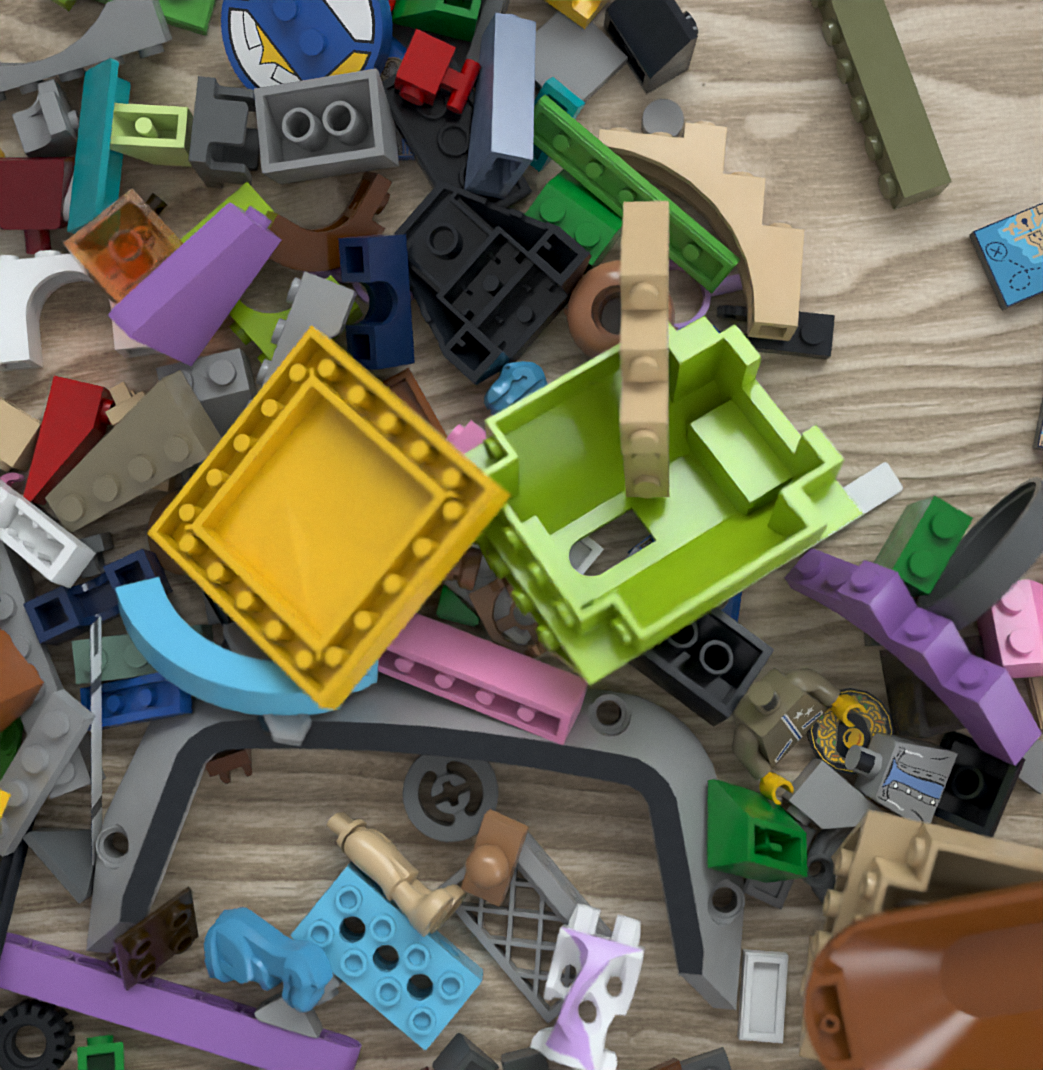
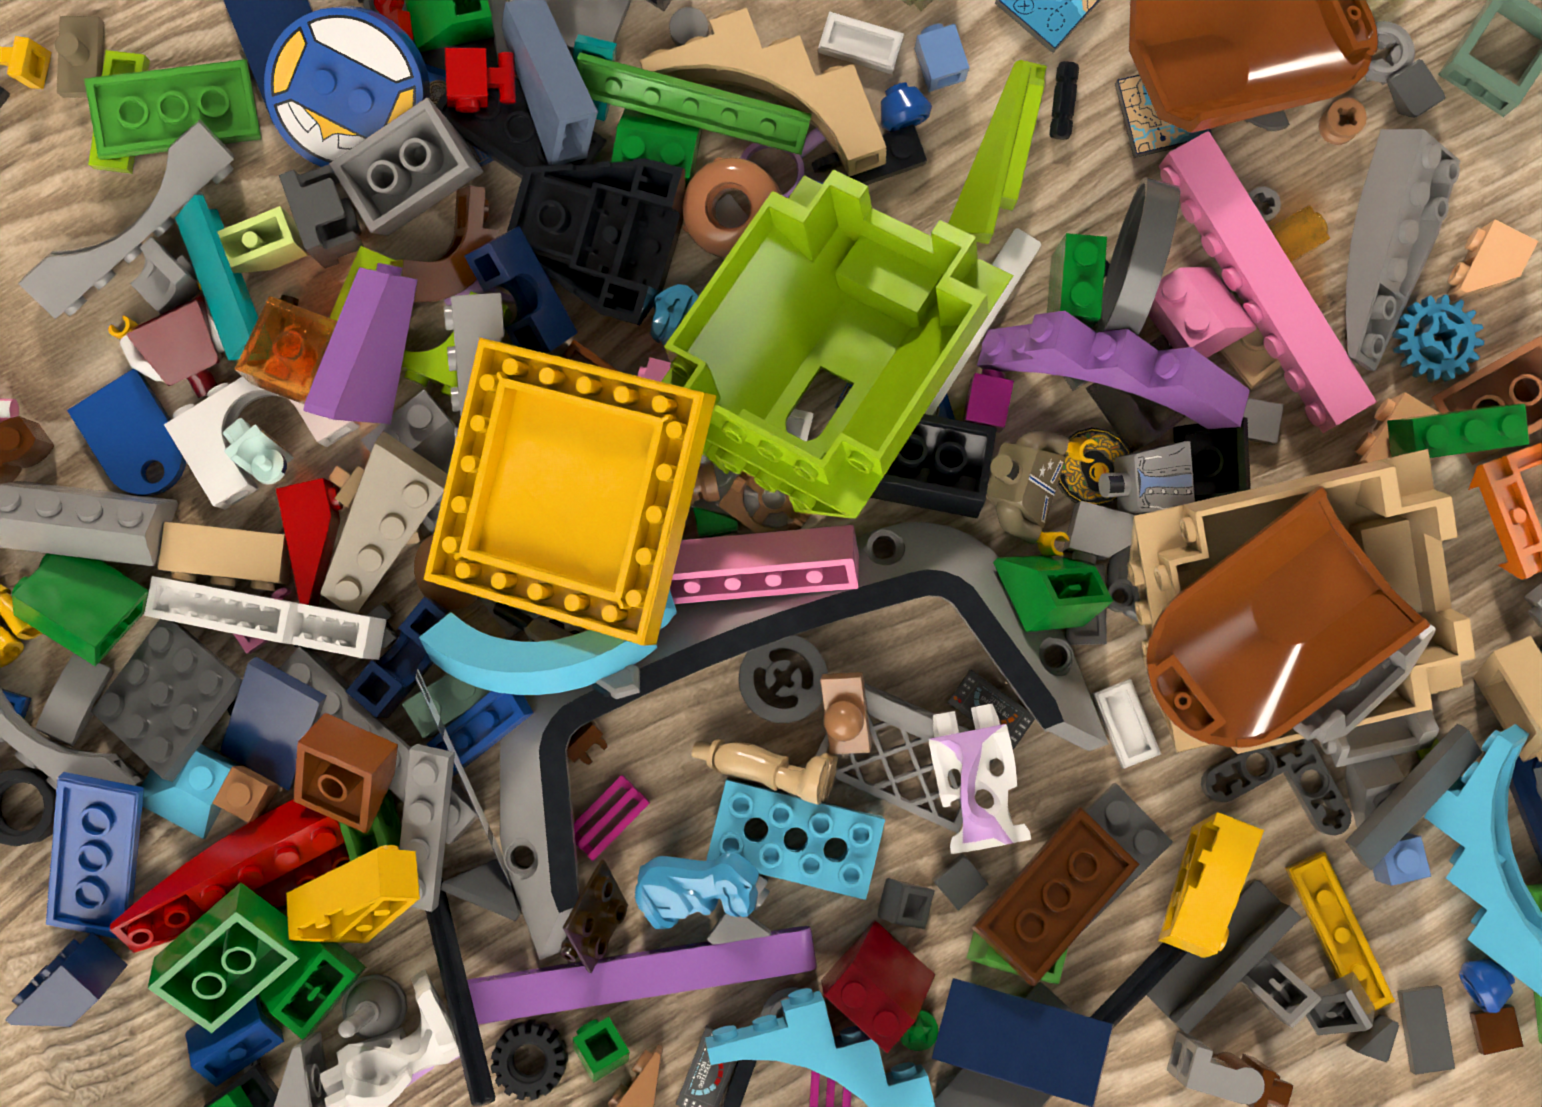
camera: 25 degrees left, 0 degrees up
(52, 332) = (256, 452): none -> light aqua hips
(184, 855) = (632, 792): none -> dark pink tile
(631, 898) = (977, 691): none -> dark grey tile
(645, 348) = (768, 225): tan arch -> none
(779, 617) = (988, 399): none -> magenta brick
(820, 212) = (860, 43): none -> white tile
(832, 294) = (903, 107): none -> blue cone
(892, 262) = (941, 56): none -> medium blue brick
(905, 386) = (1003, 154): none -> lime wedge
(991, 361) = (1064, 100): none -> black axle

